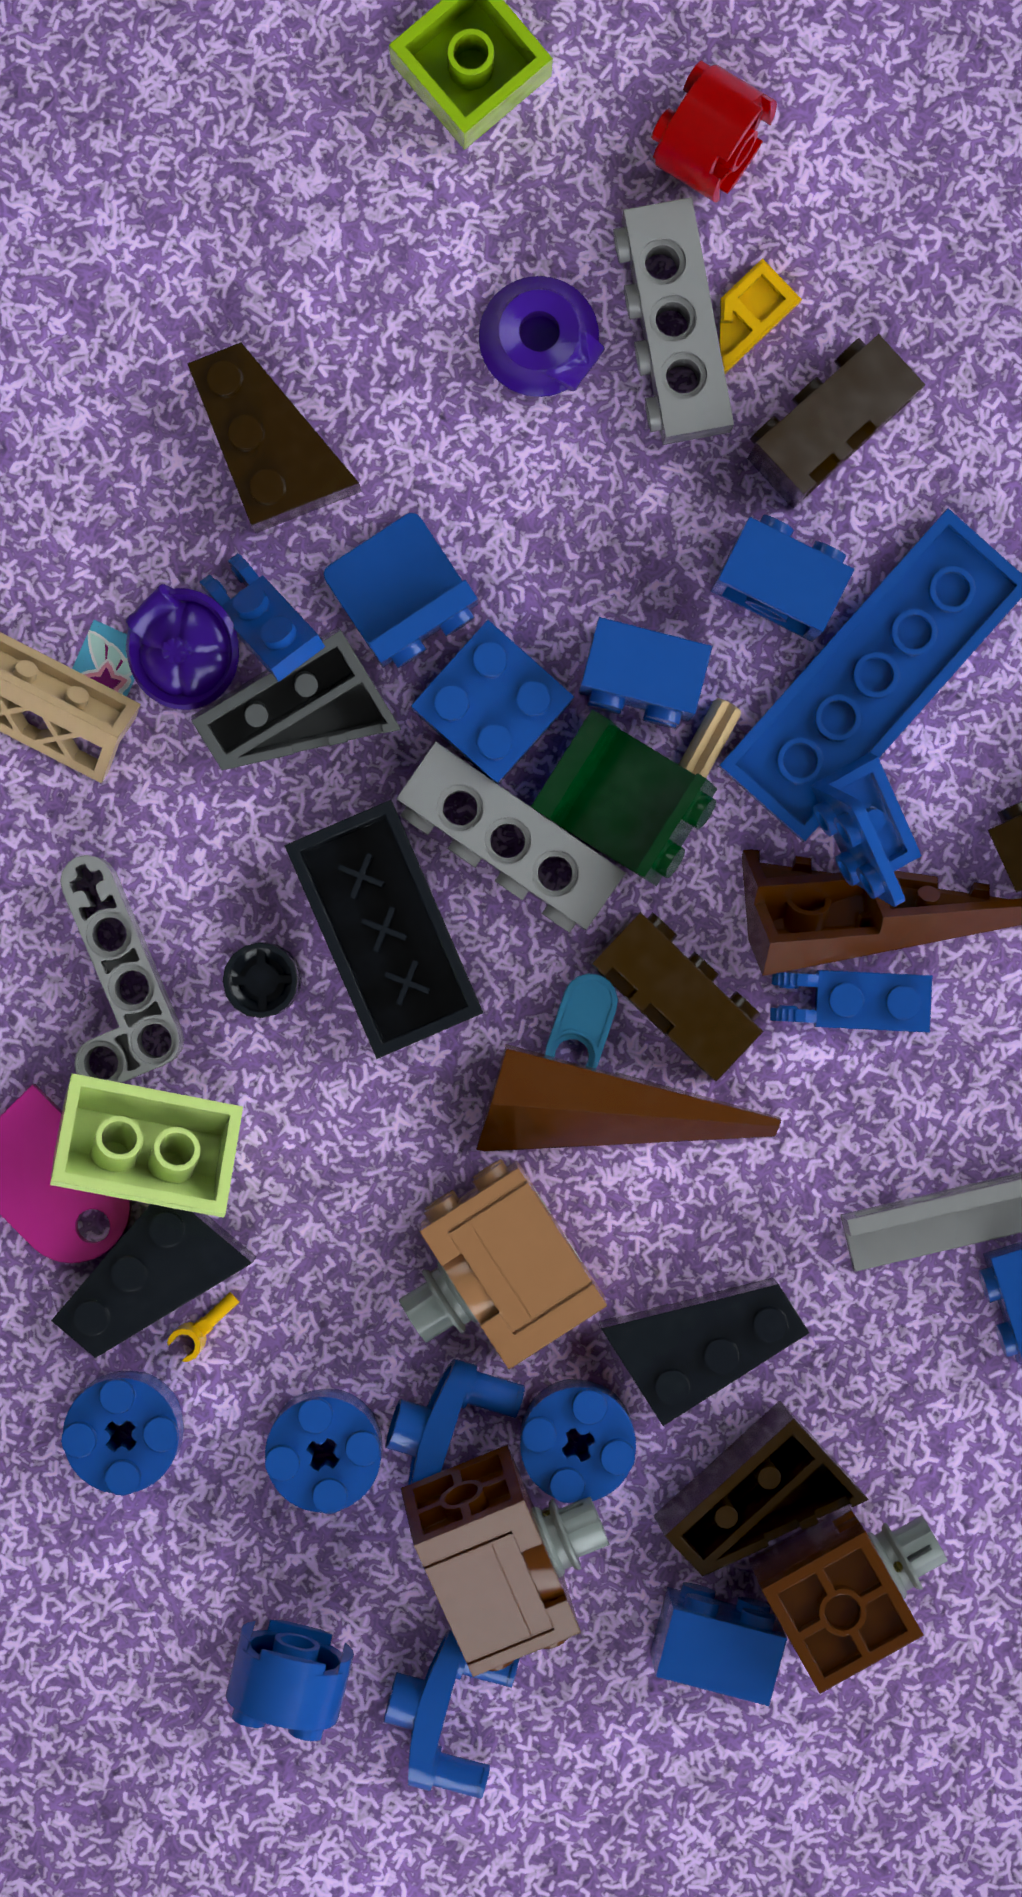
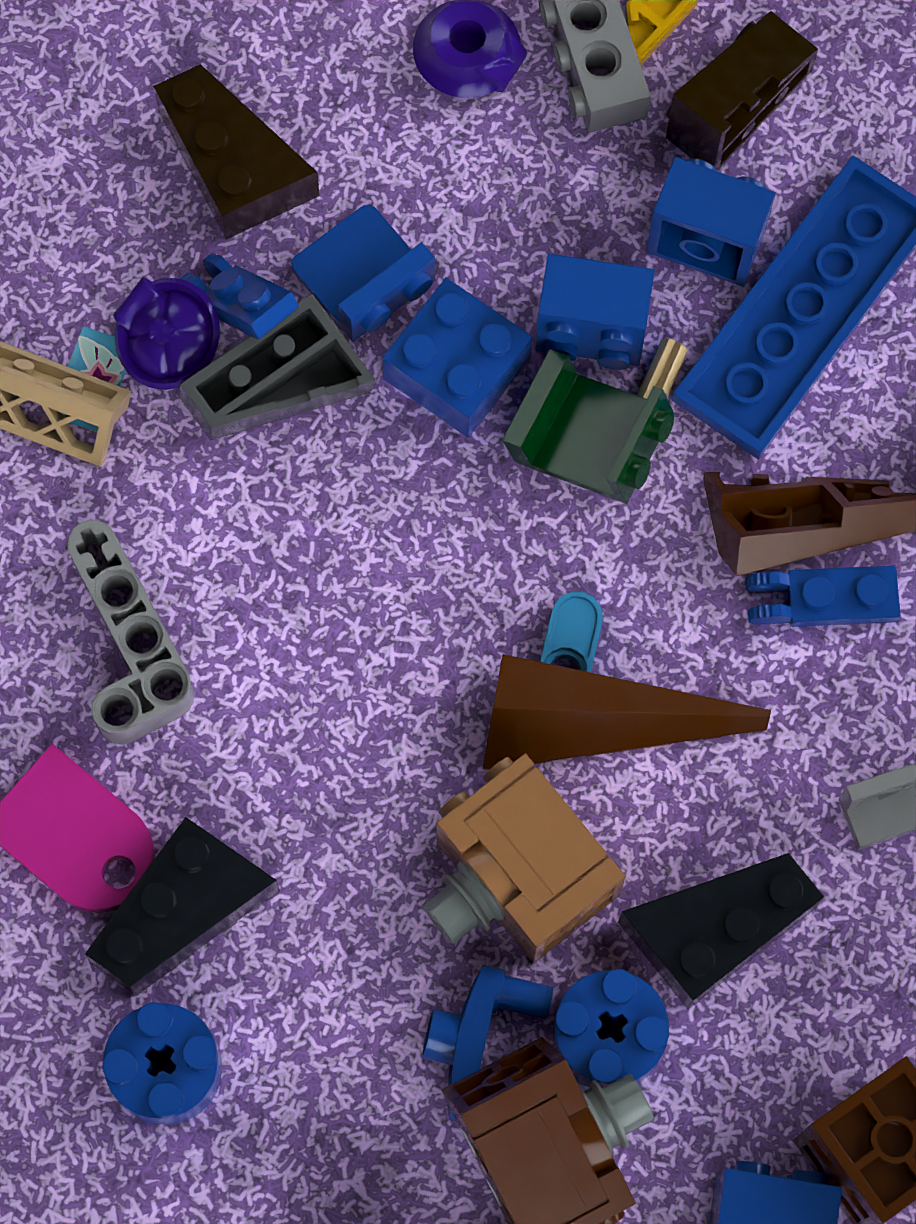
camera: 10 degrees left, 15 degrees down
(146, 1145) = (166, 771): yellowish green slope -> none
(204, 1325) = (234, 960): yellow hand -> none
(262, 980) = (264, 621): black wheel -> none
(329, 1483) = (353, 1031): blue brick -> none
(383, 929) = (376, 564): black brick -> none
(446, 774) = (424, 425): light grey brick -> none
(678, 994) = (655, 597): dark brown wedge -> none
(756, 1492) = (793, 1062): dark brown wedge -> none
(867, 826) = (815, 429): blue bracket -> none

